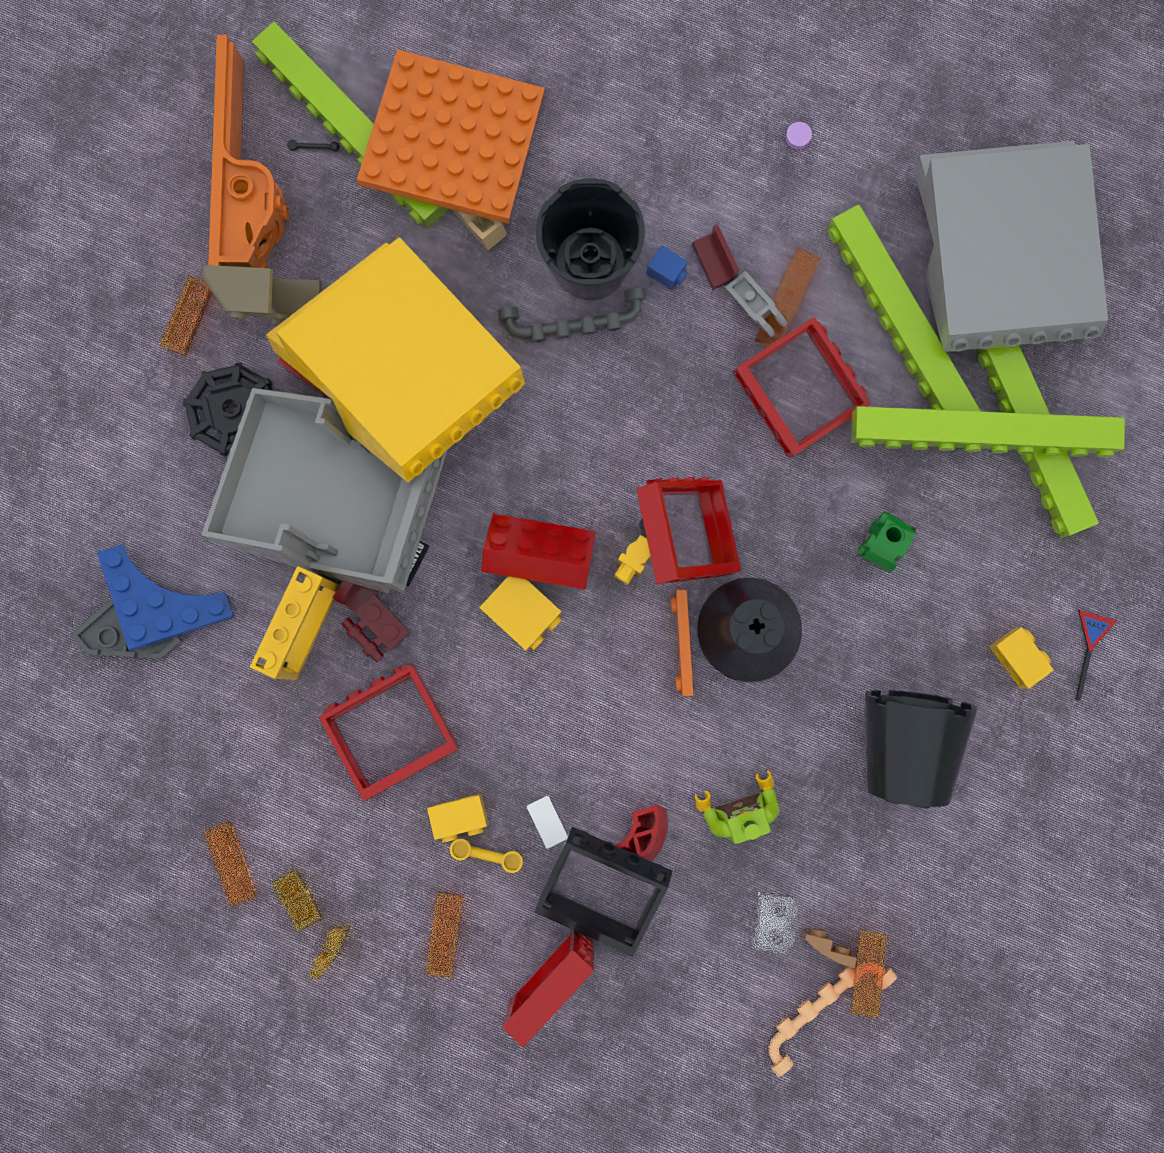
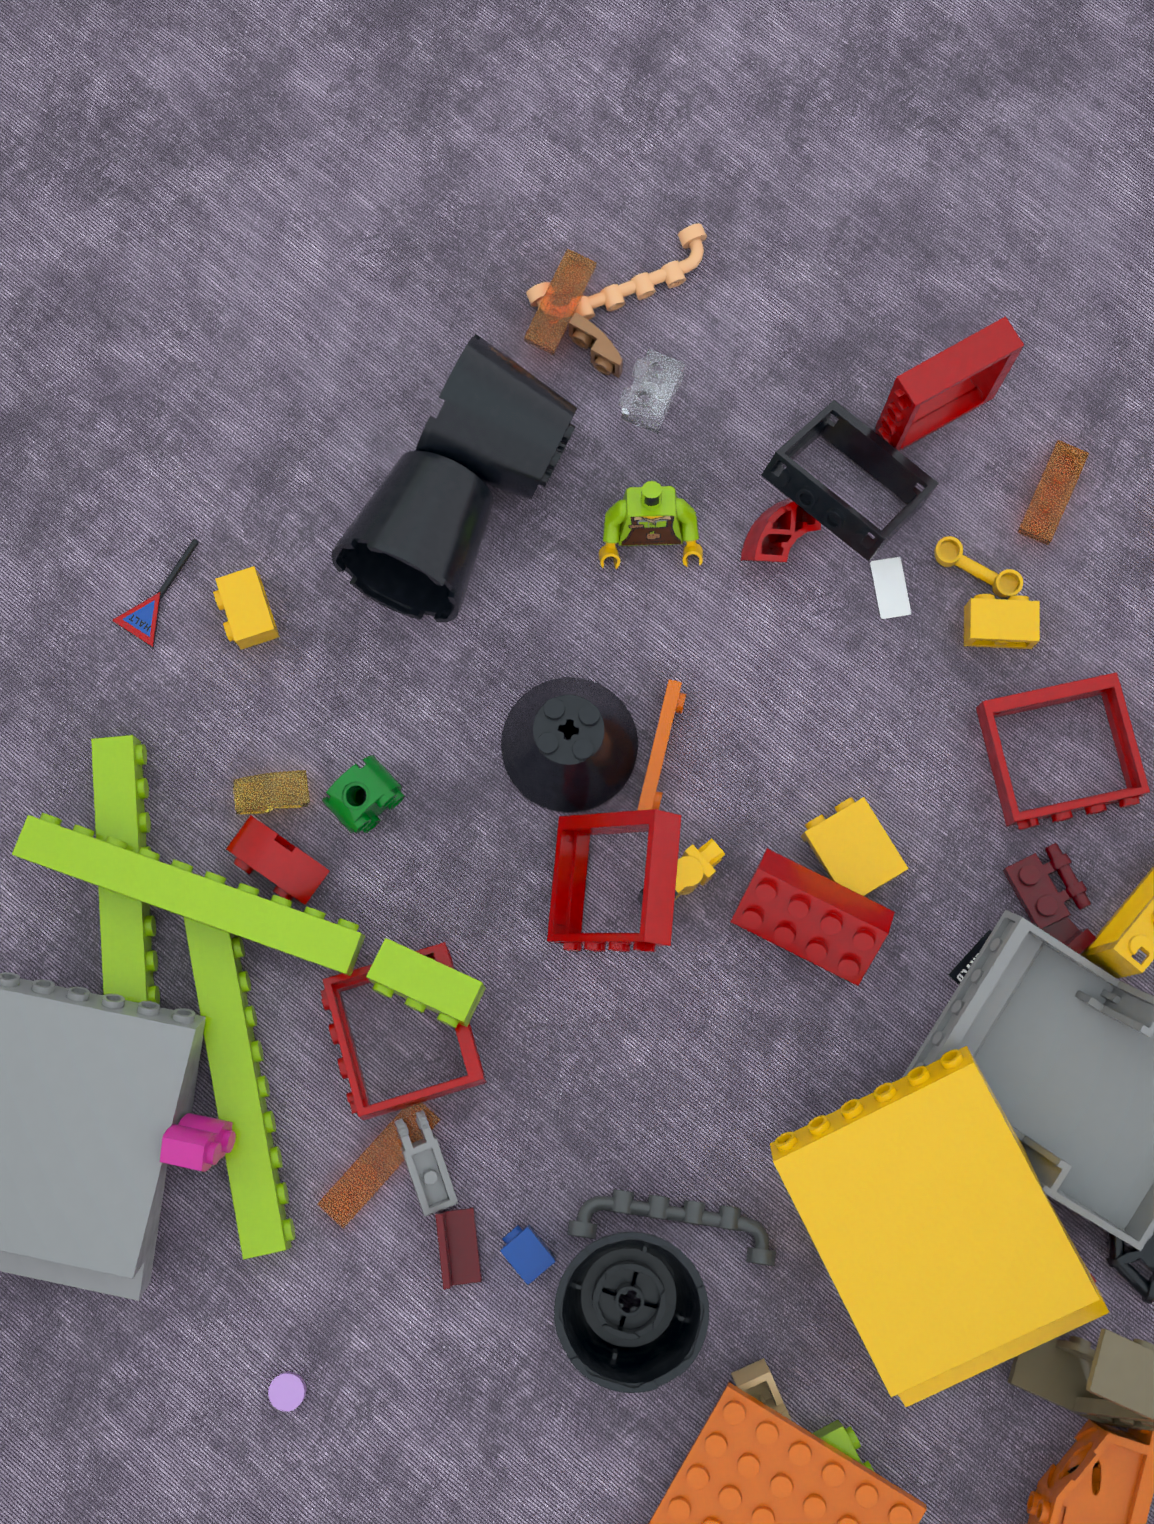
camera: 165 degrees left, 5 degrees down
(798, 418) = (425, 984): none -> lime brick
(886, 853) = (499, 421): none -> black cone
(919, 263) = (197, 1142): none -> dark pink brick
(932, 478) = (277, 860): none -> red brick
(954, 527) = (269, 791): none -> clear yellow slope

